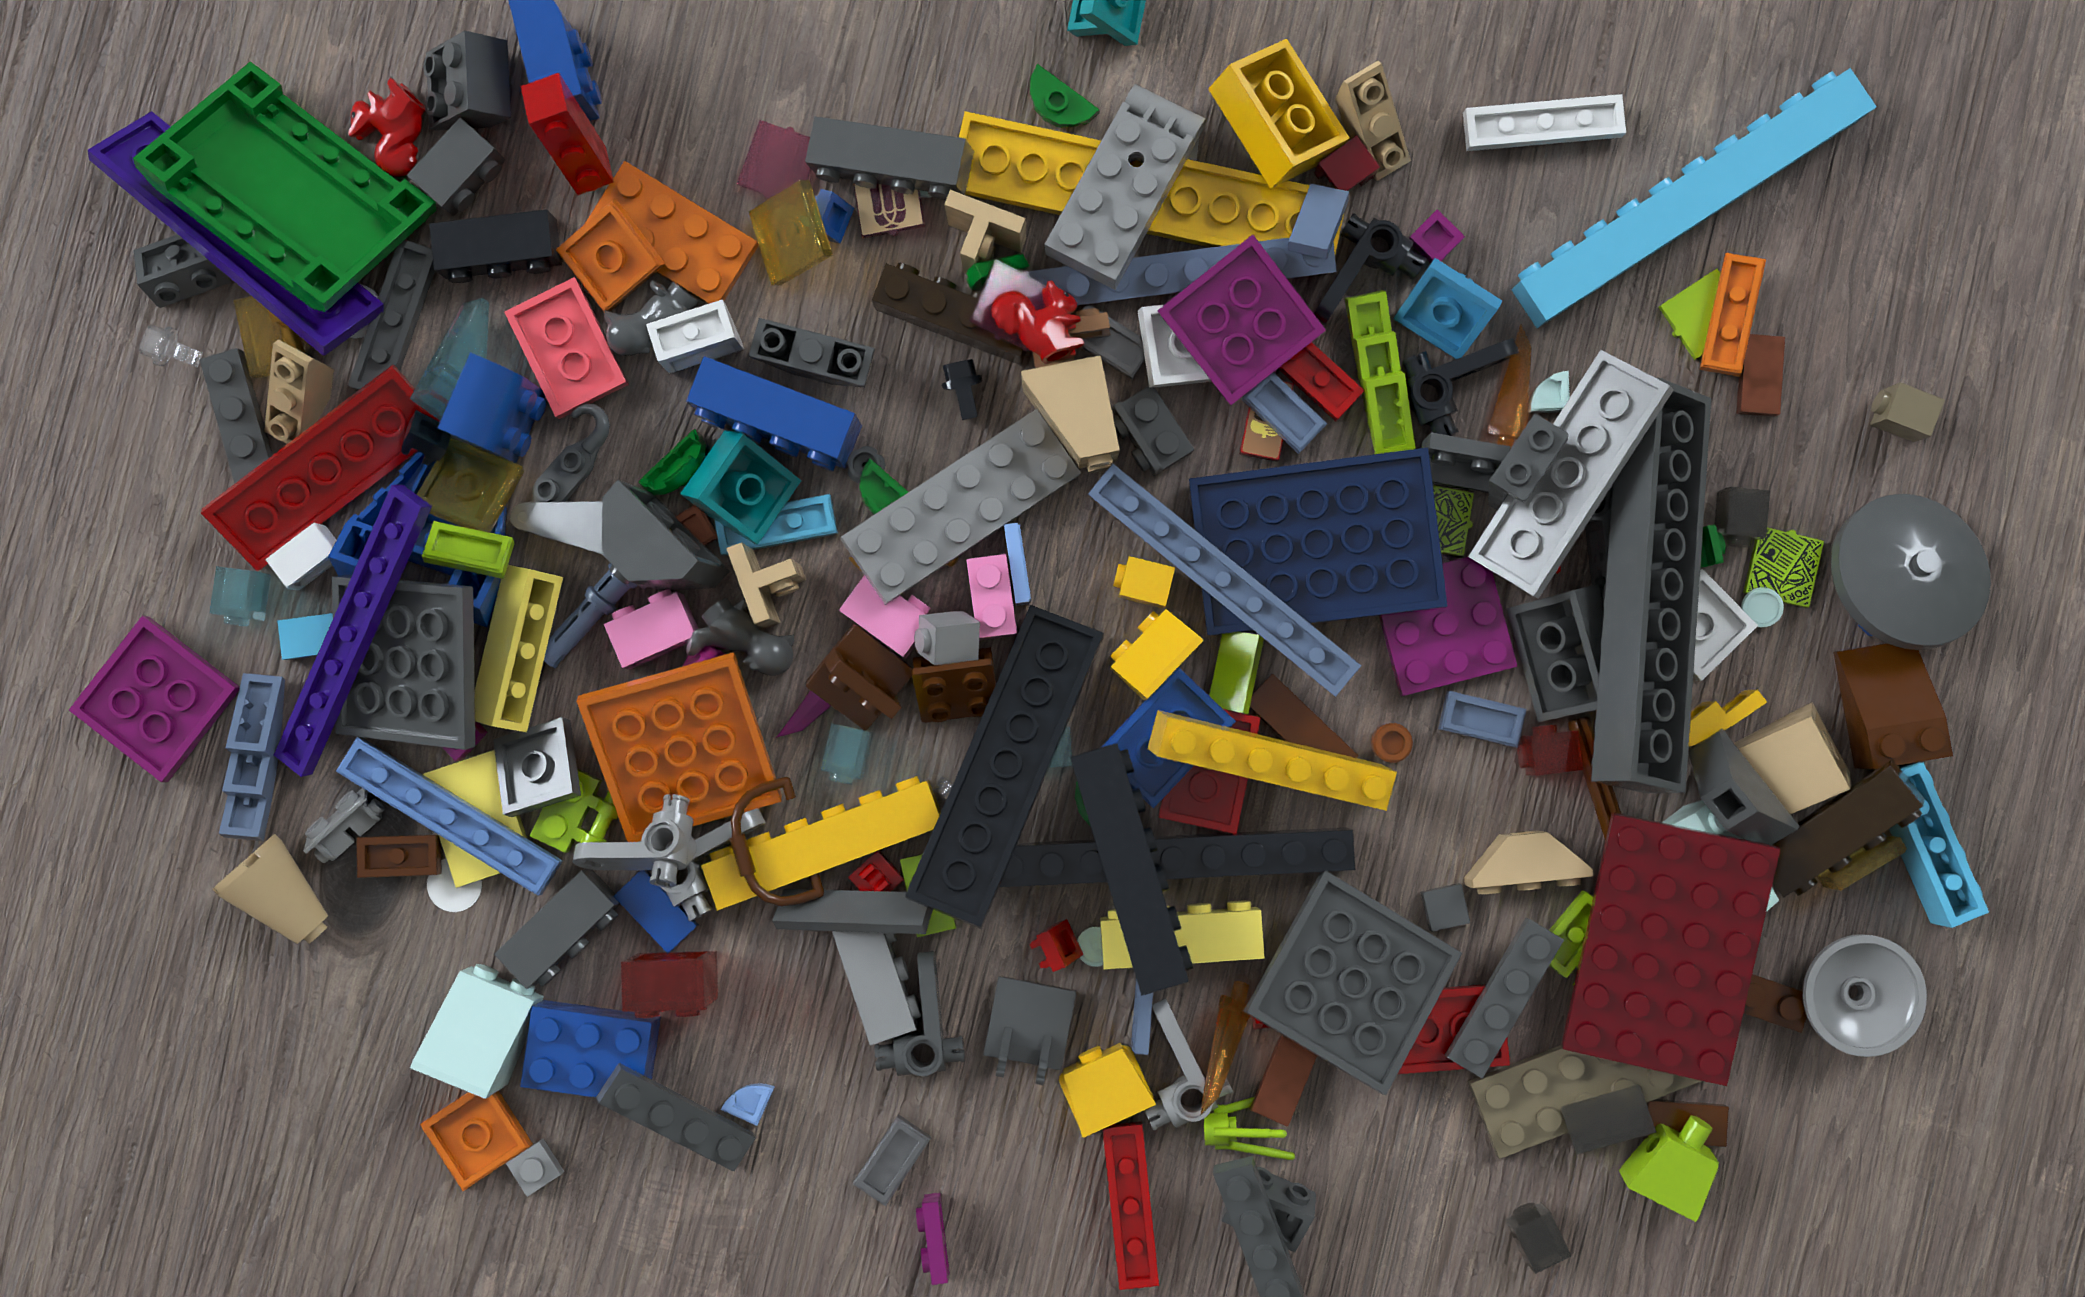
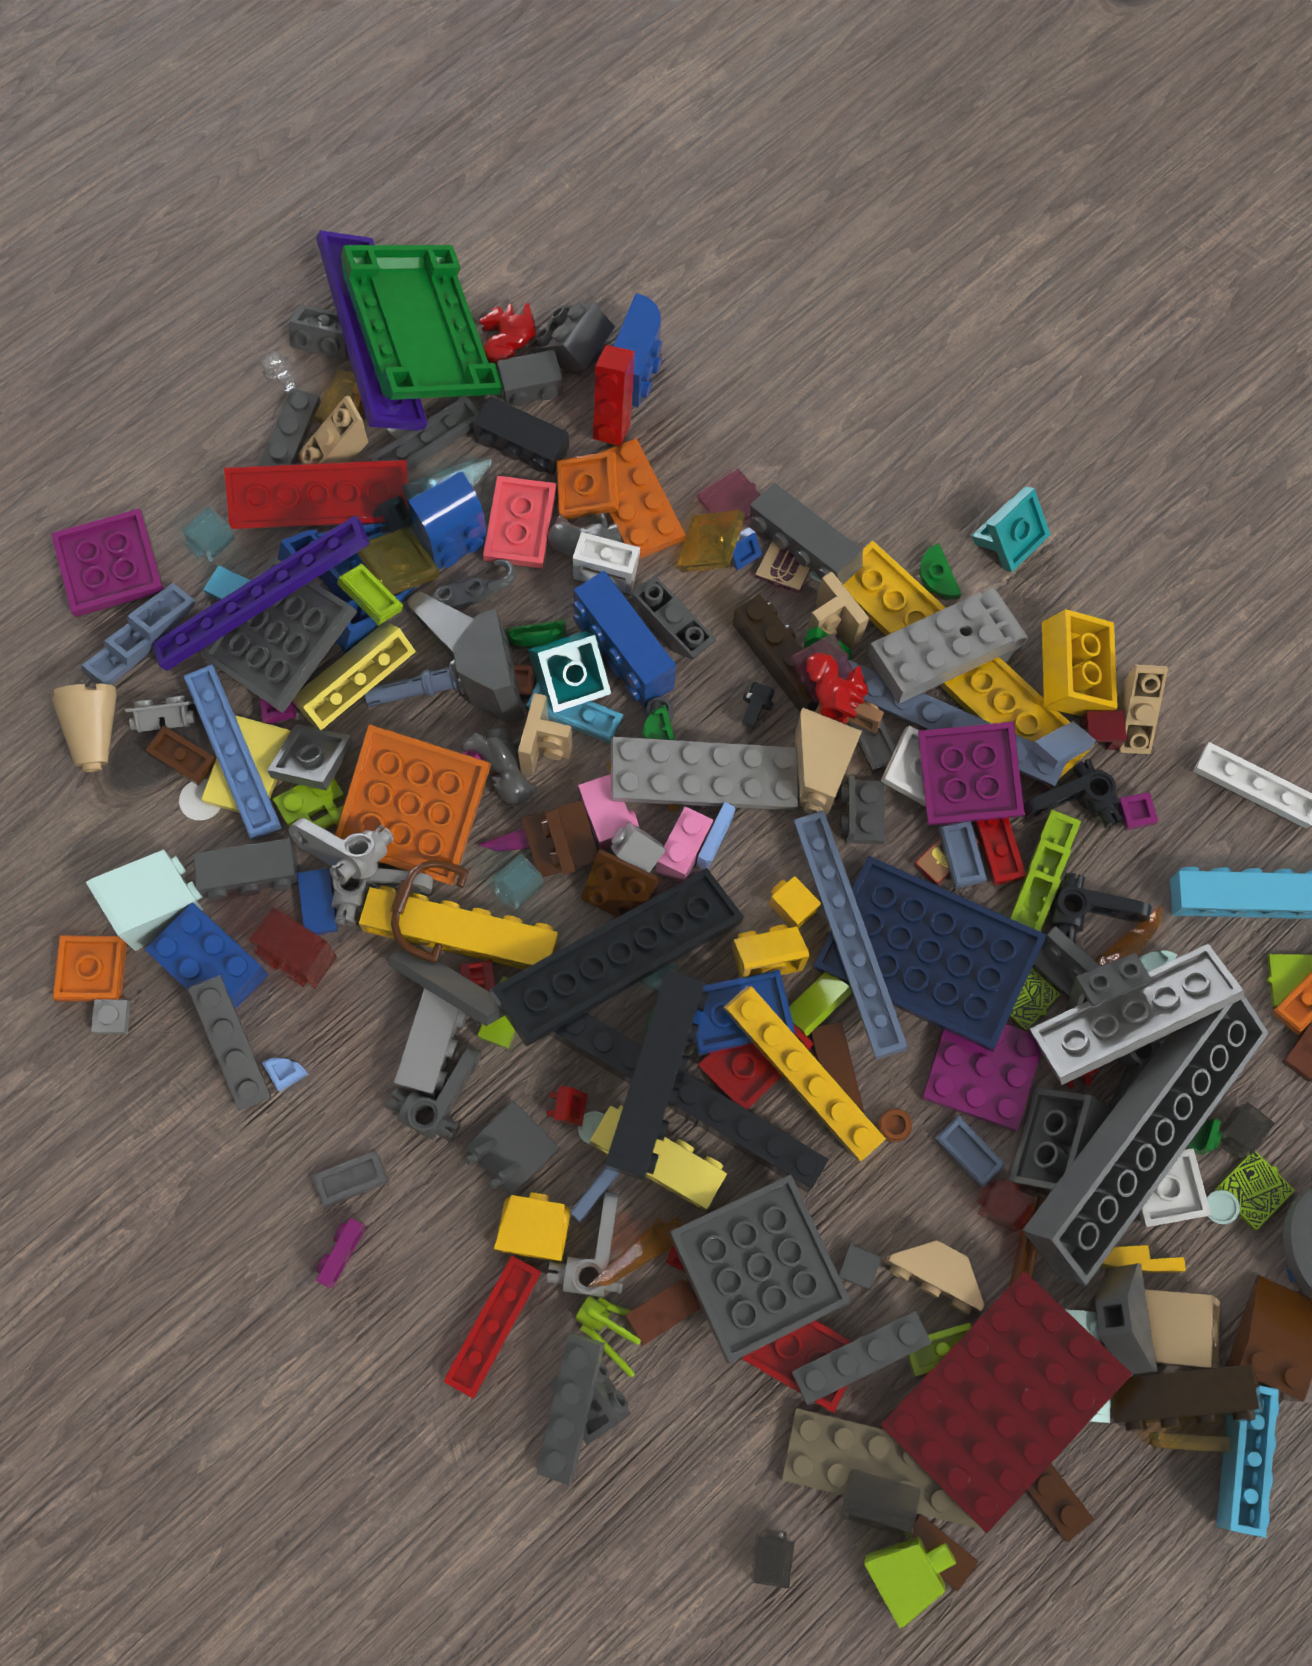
camera: 25 degrees right, 15 degrees down
(303, 557) = (263, 538): white piece -> none
(651, 629) = (446, 721): bright pink brick -> none
(1447, 309) = (1116, 856): dark azure tile -> none
(1888, 998) = (1156, 1547): light grey dish -> none

